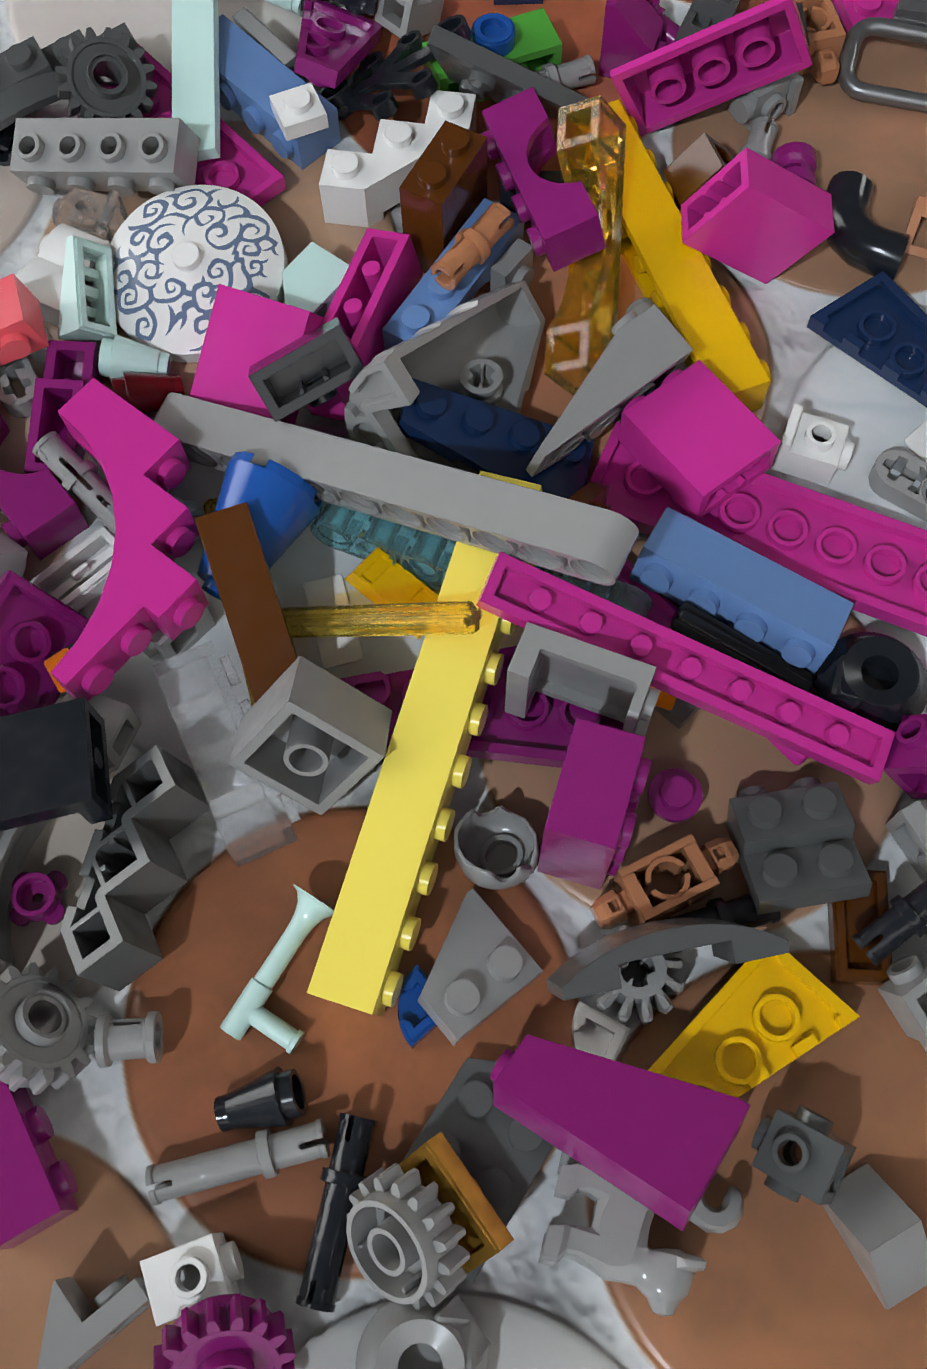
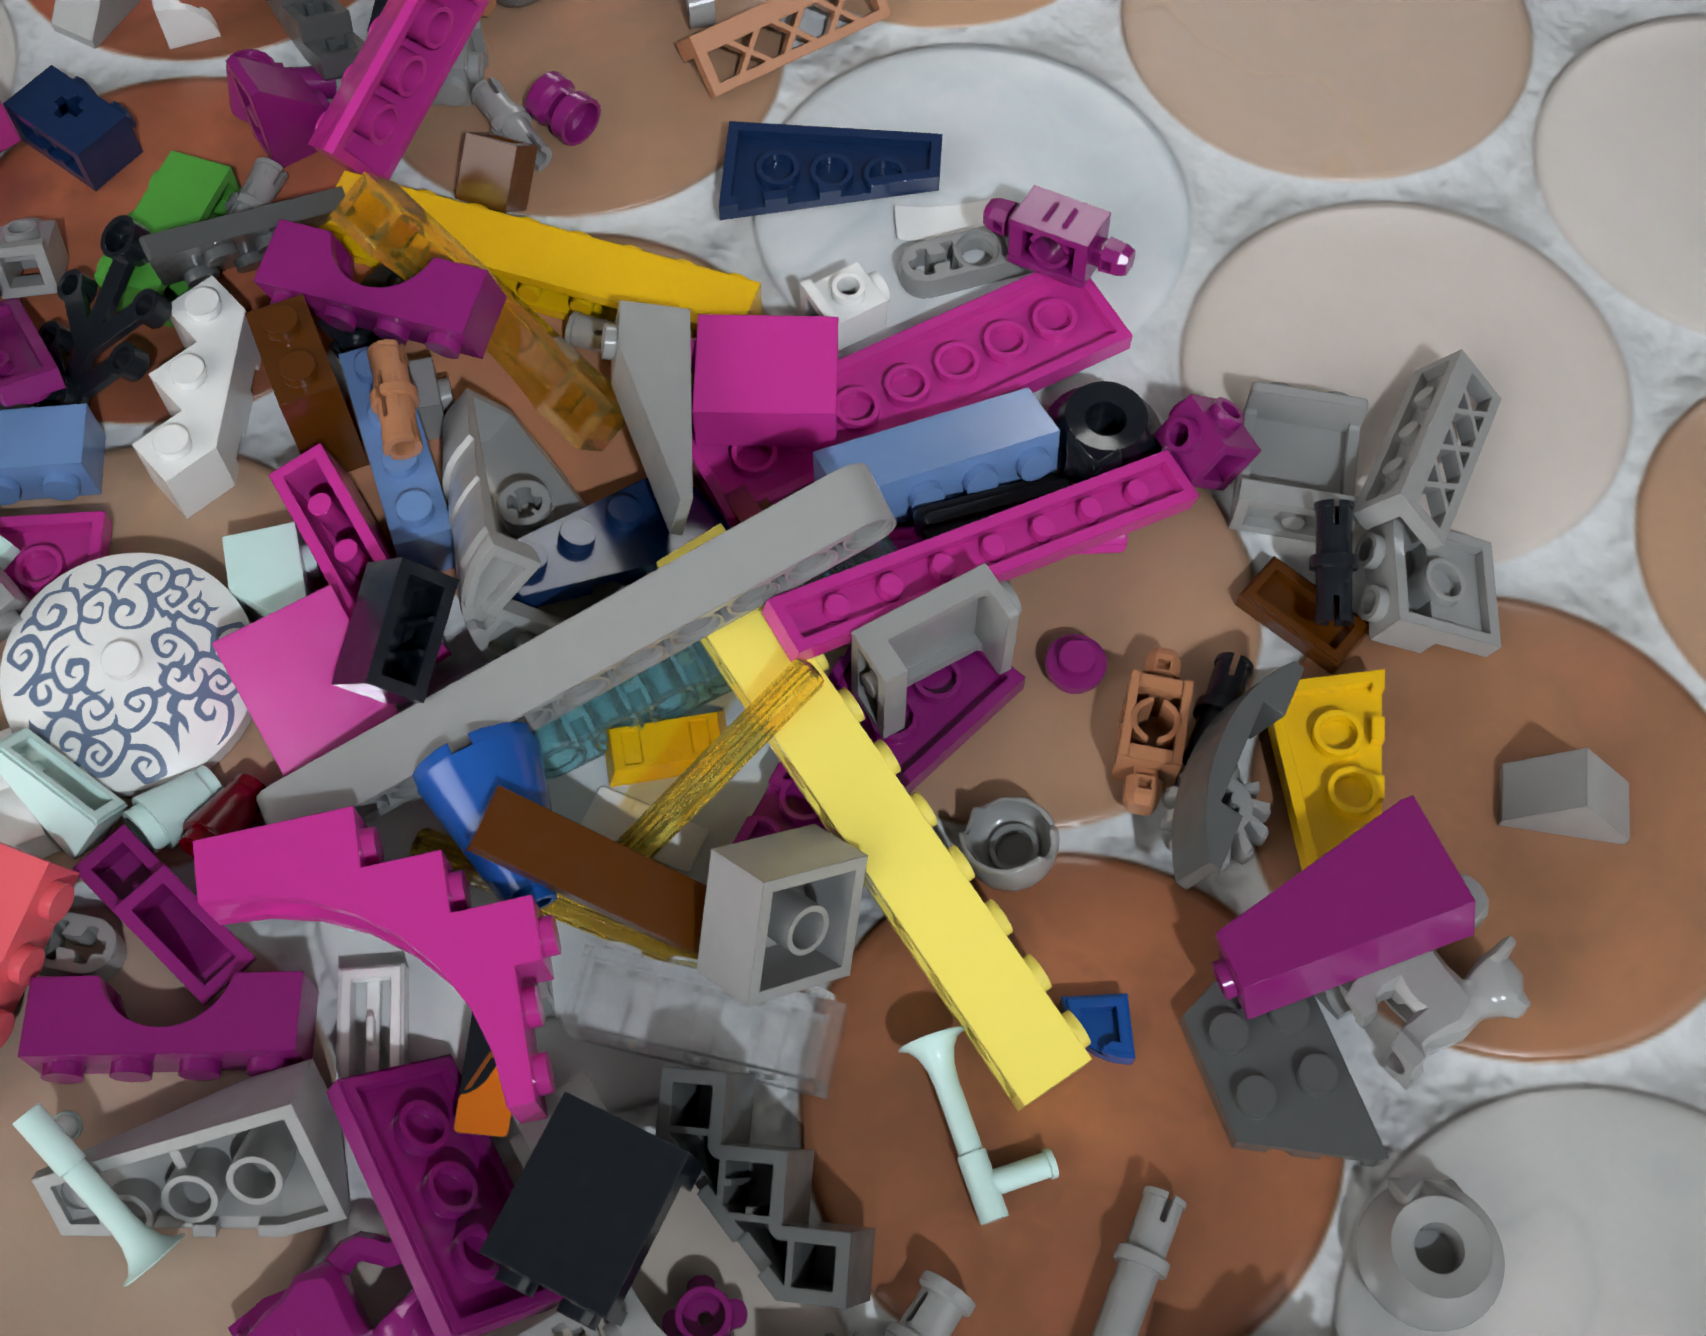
camera: 55 degrees left, 5 degrees down
(56, 456) = (295, 948): light grey pin -> none
(263, 1102) = (1089, 1232): black cone -> none
(299, 111) = (57, 437): white plate -> none
(329, 1236) = (1240, 1234): black pin -> none
(405, 1238) = (1317, 1176): light grey gear -> none
(475, 971) = (1108, 947): light grey wing -> none
(484, 1229) = (1314, 1111): pearl gold plate -> none
(494, 33) = (160, 207): blue tile -> none
(594, 804) = (1052, 720): magenta brick -> none
(597, 1032) = (1237, 889): white tile -> none
(756, 217) = (595, 163): dark pink brick -> none
(797, 846) = (1202, 601): dark grey plate -> none
(822, 1160) = (1492, 794): dark grey brick -> none
(856, 236) = (667, 112): black cylinder -> none

